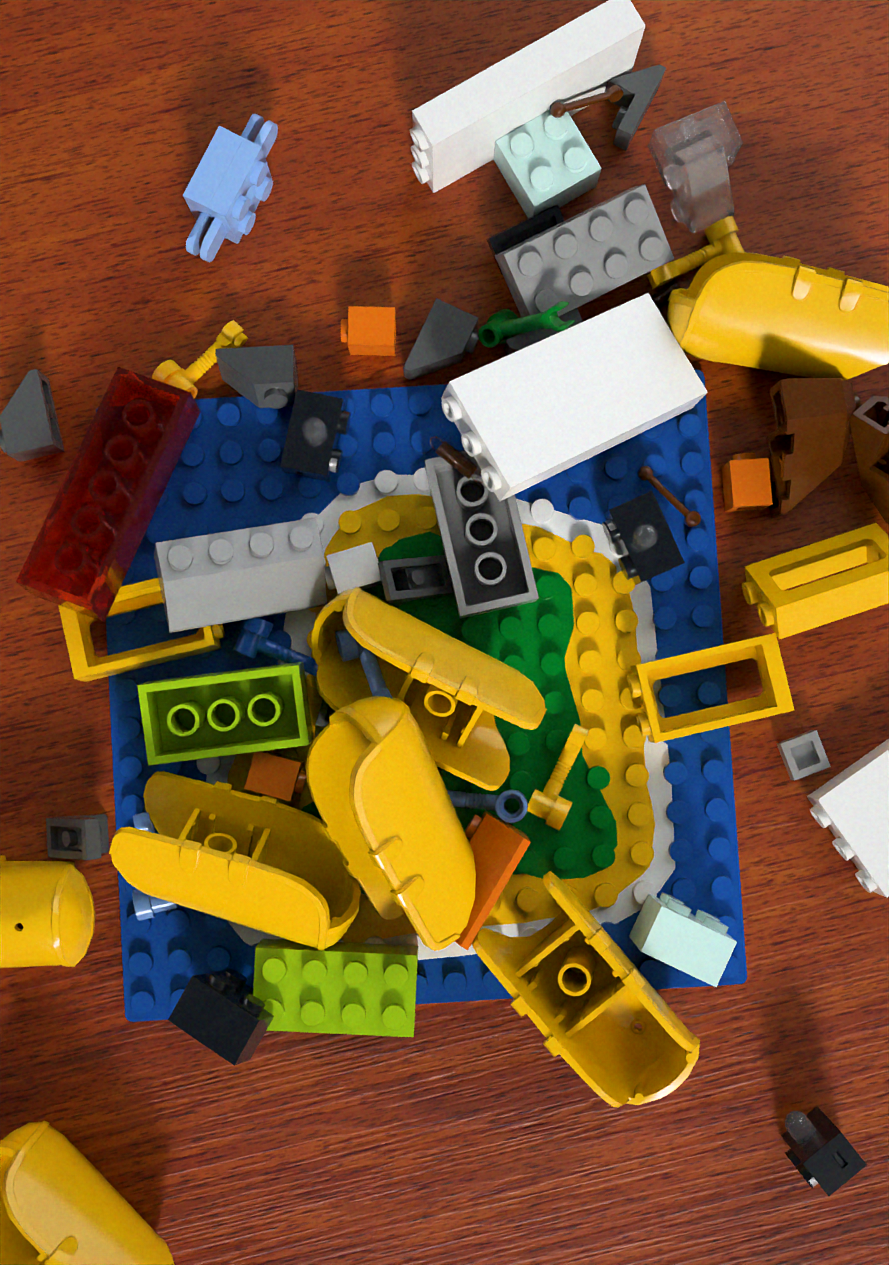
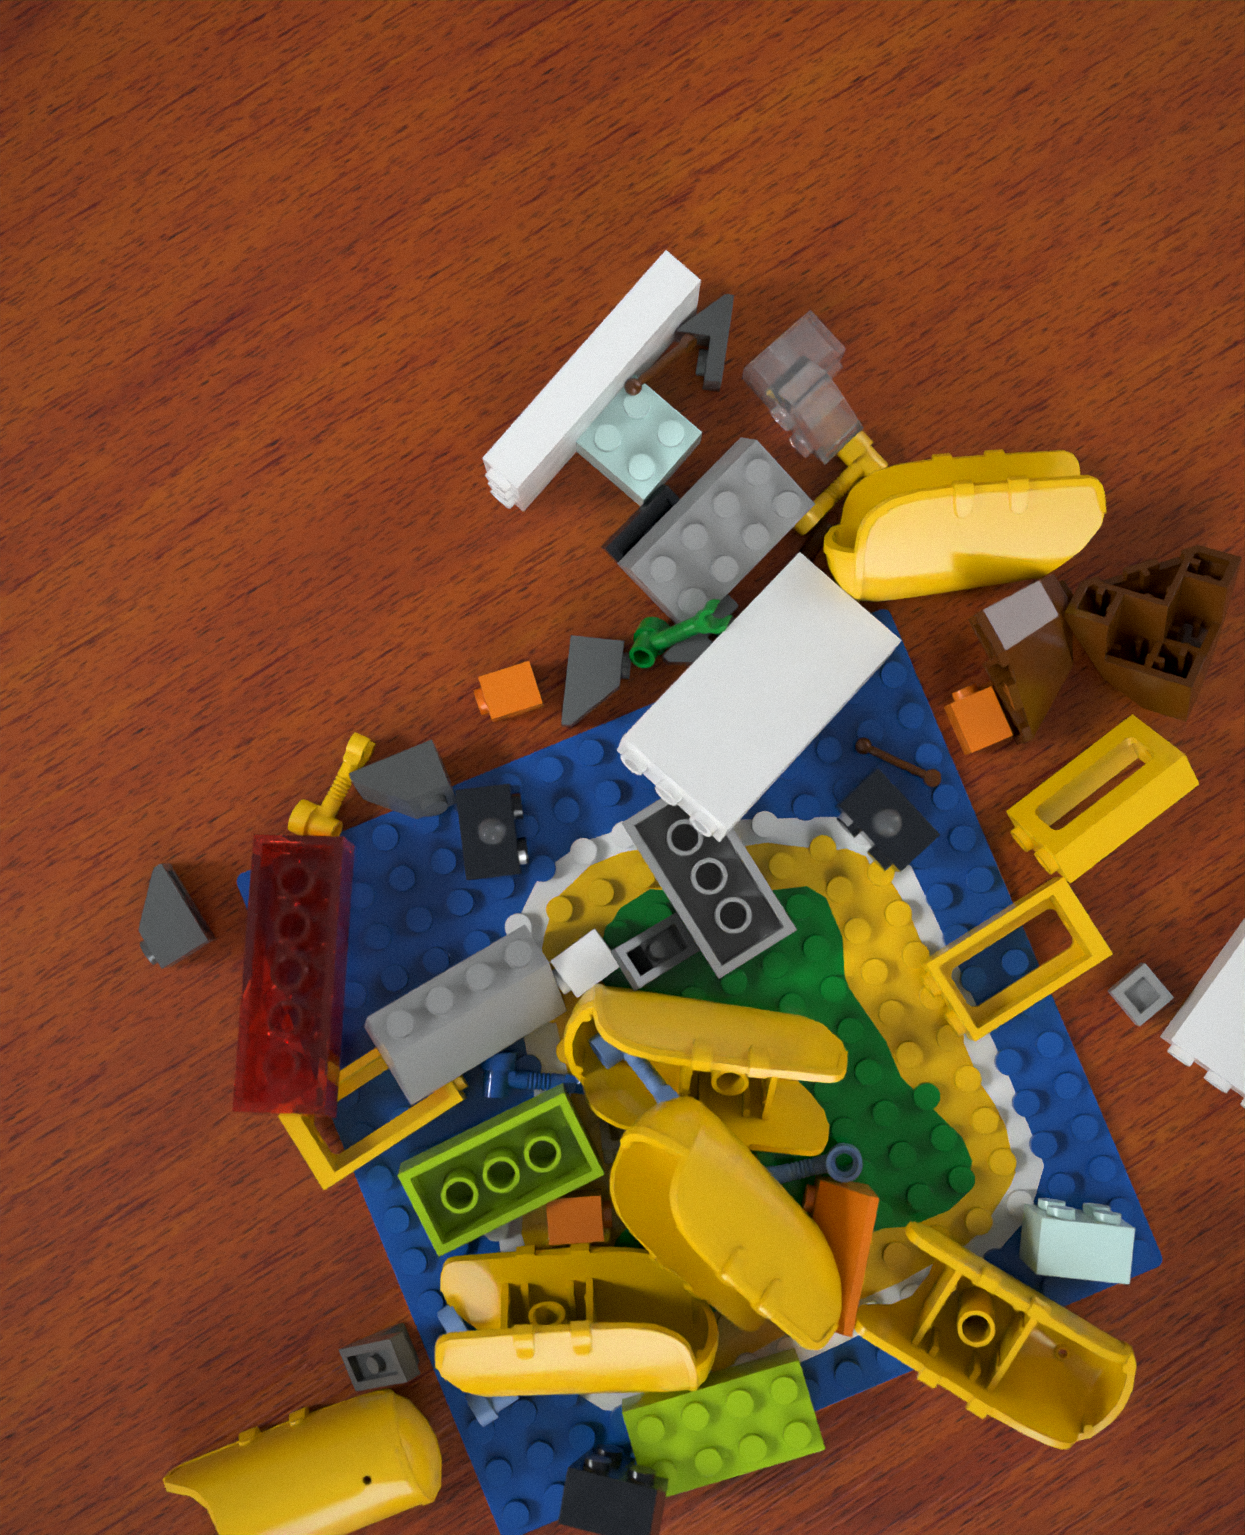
camera: 20 degrees left, 0 degrees up
(229, 186) = (302, 590): light blue brick -> none
(456, 459) = (657, 811): reddish brown piece -> none
(548, 803) = (882, 1144): yellow brick -> none

